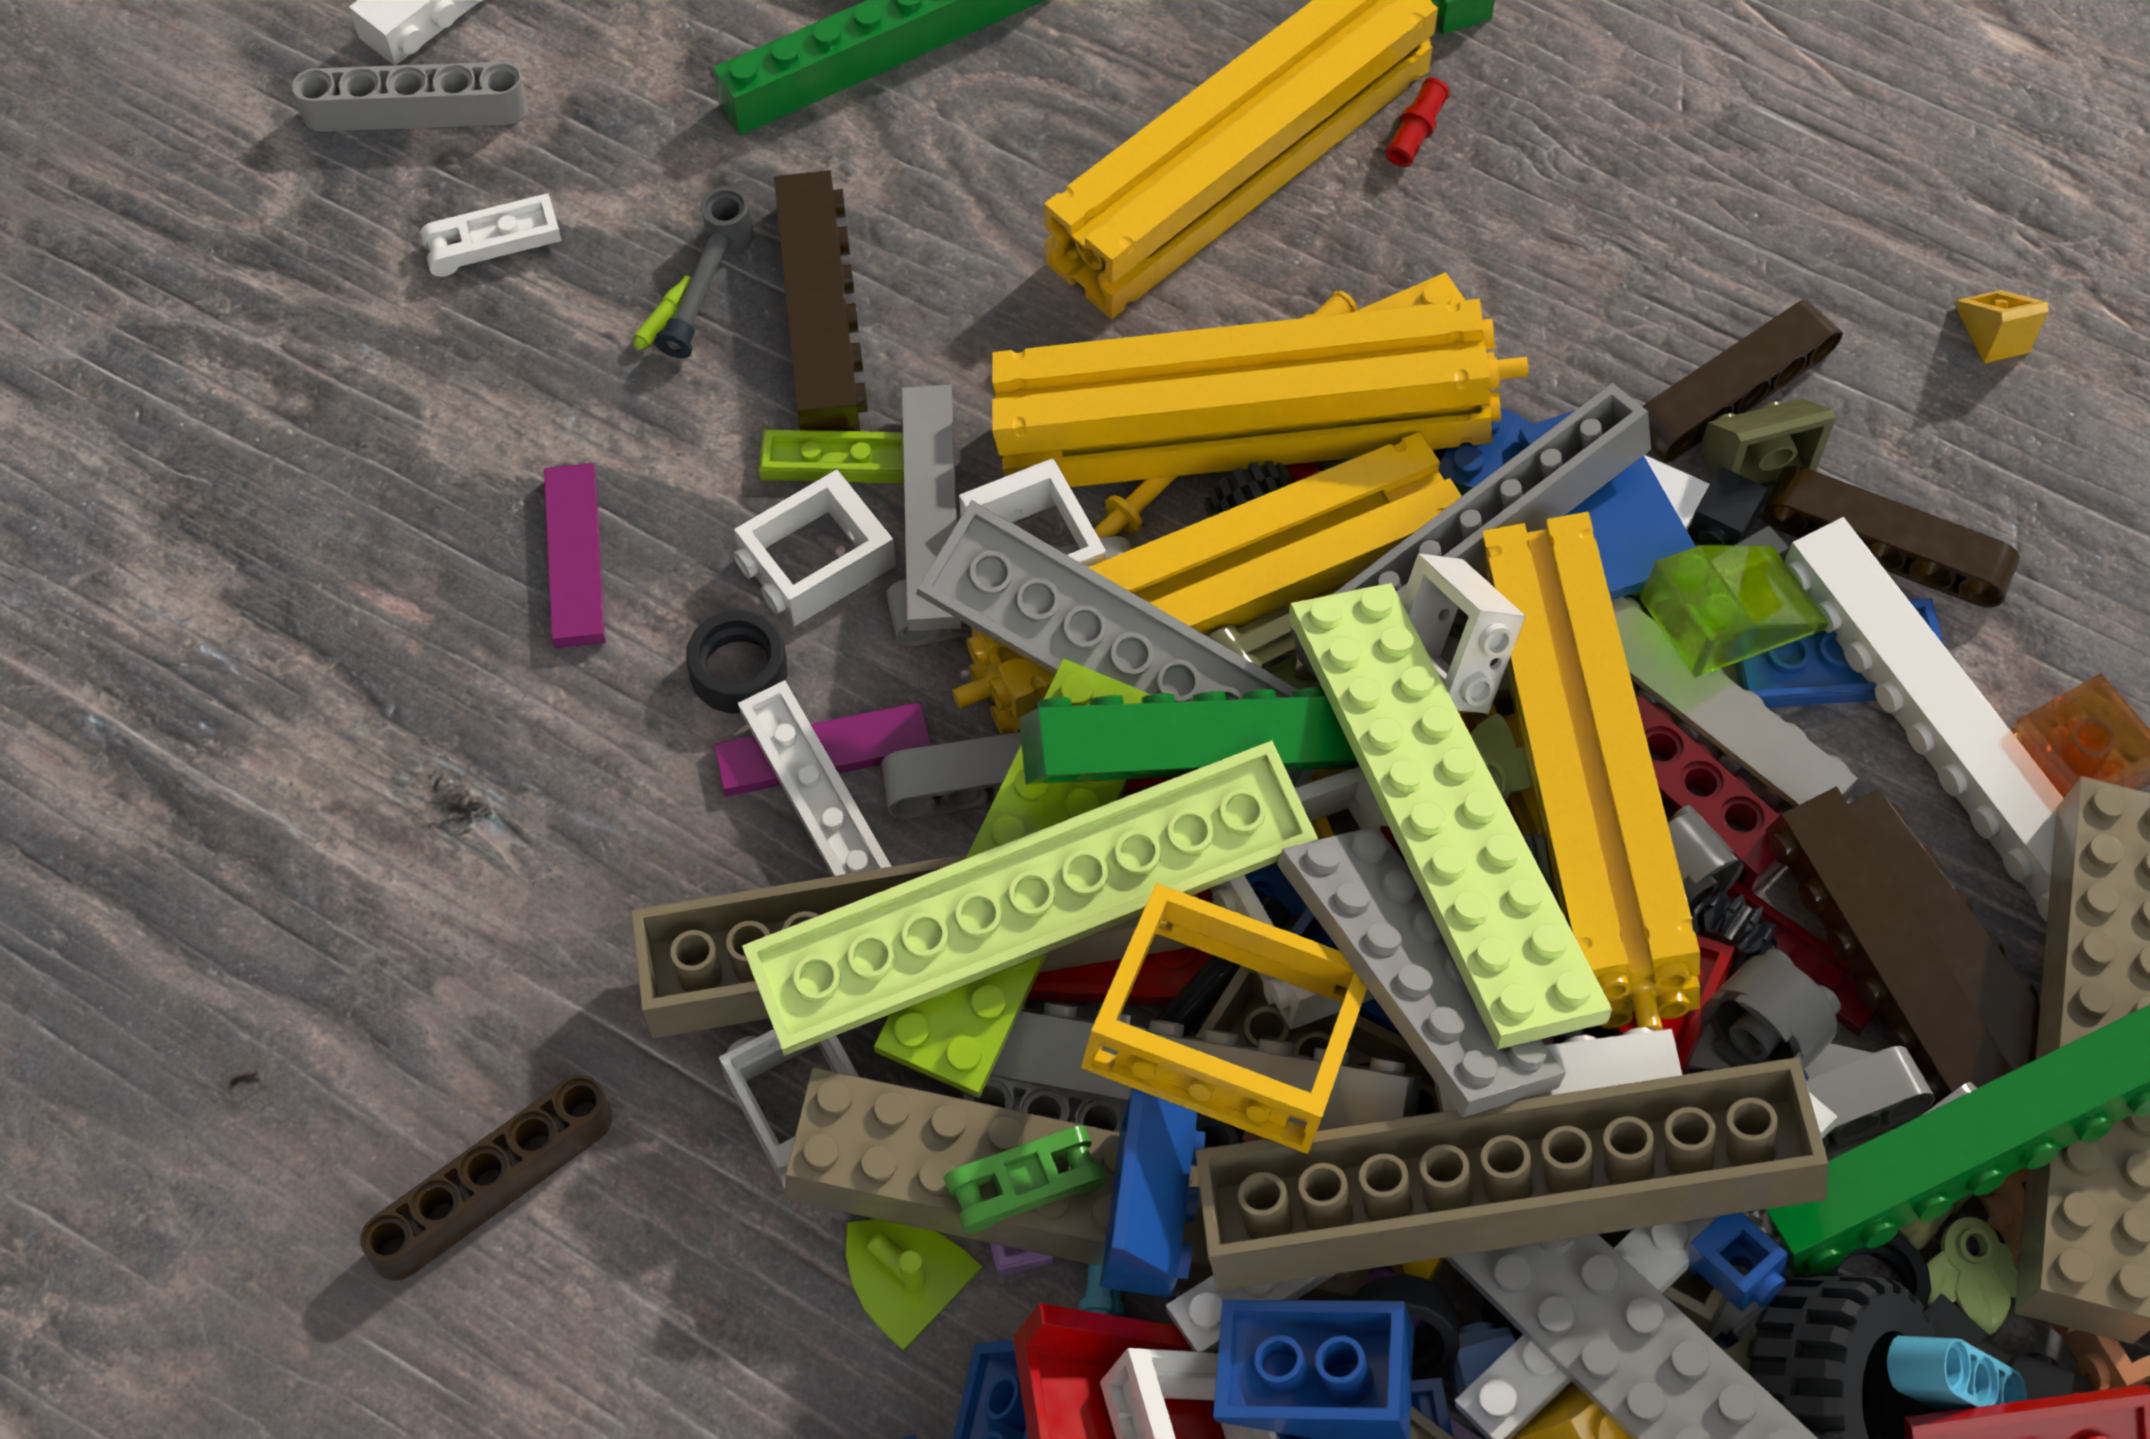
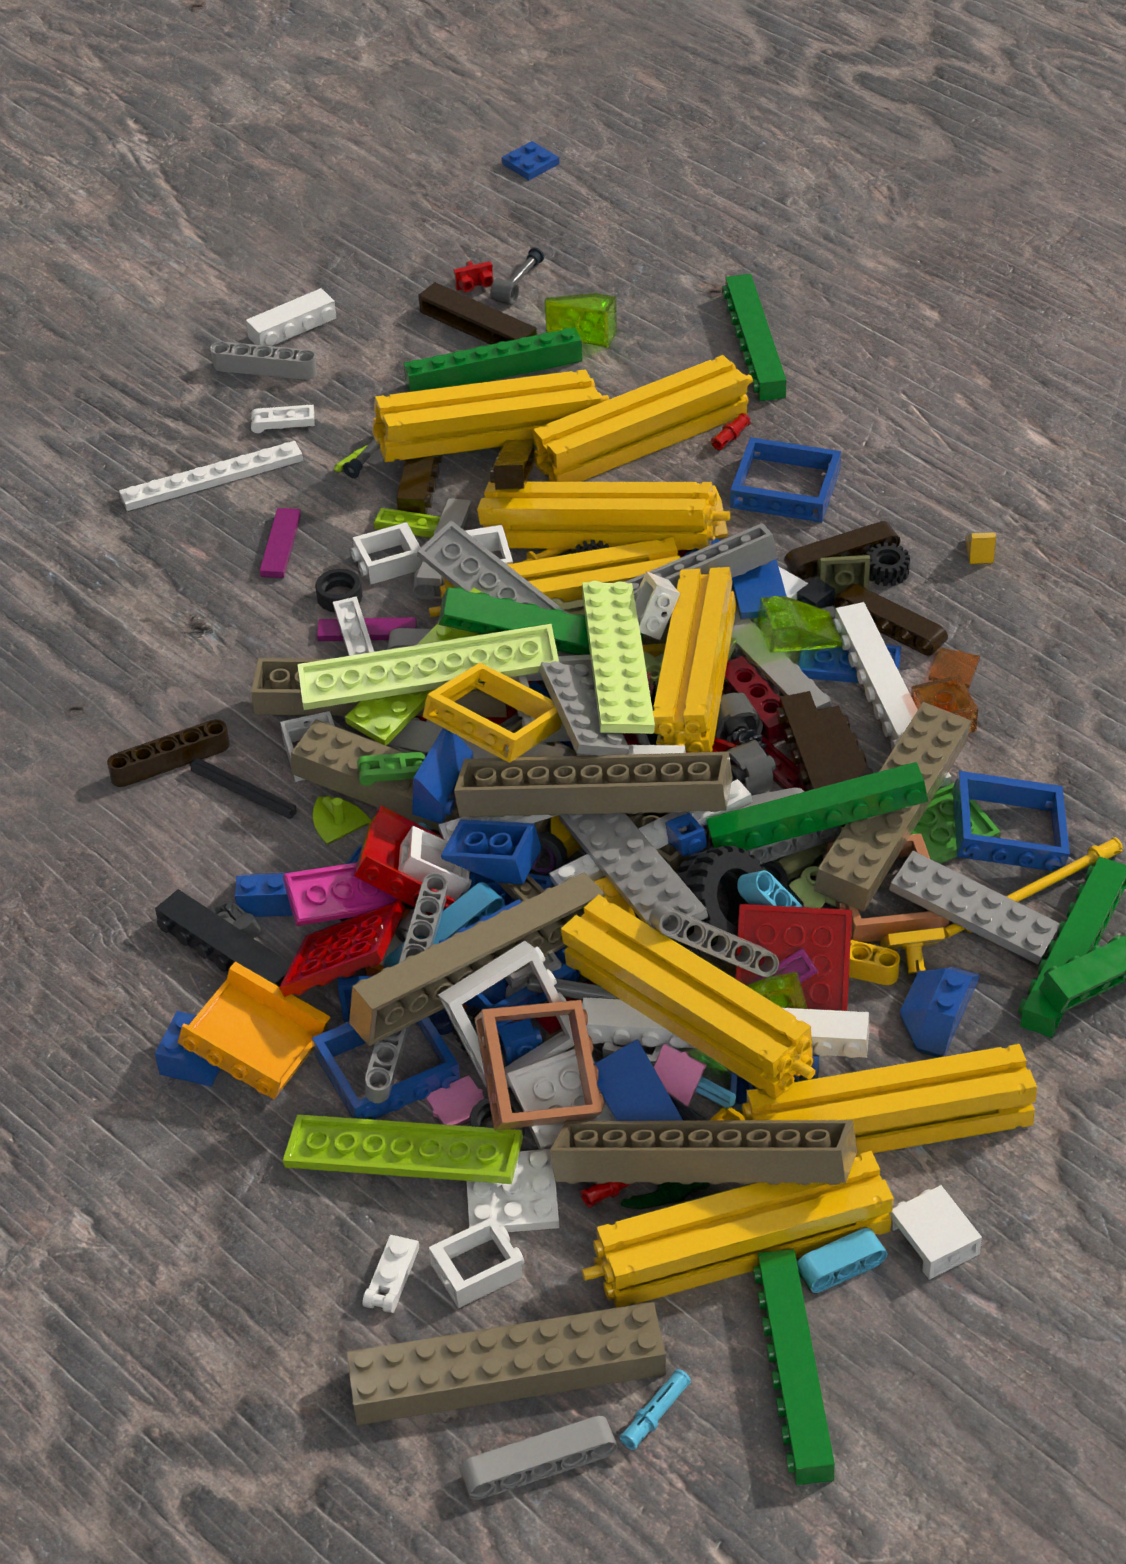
camera: 15 degrees right, 15 degrees down
(374, 406) = (210, 475): none -> white plate
(679, 1237) = (243, 788): none -> black axle
(920, 180) = (477, 414): none -> yellow brick
(1031, 301) = (513, 464): none -> dark brown brick
(1565, 282) = (779, 502): none -> blue window
(1846, 378) = (888, 573): none -> black tyre
(2049, 629) = (954, 663): none -> clear orange piece

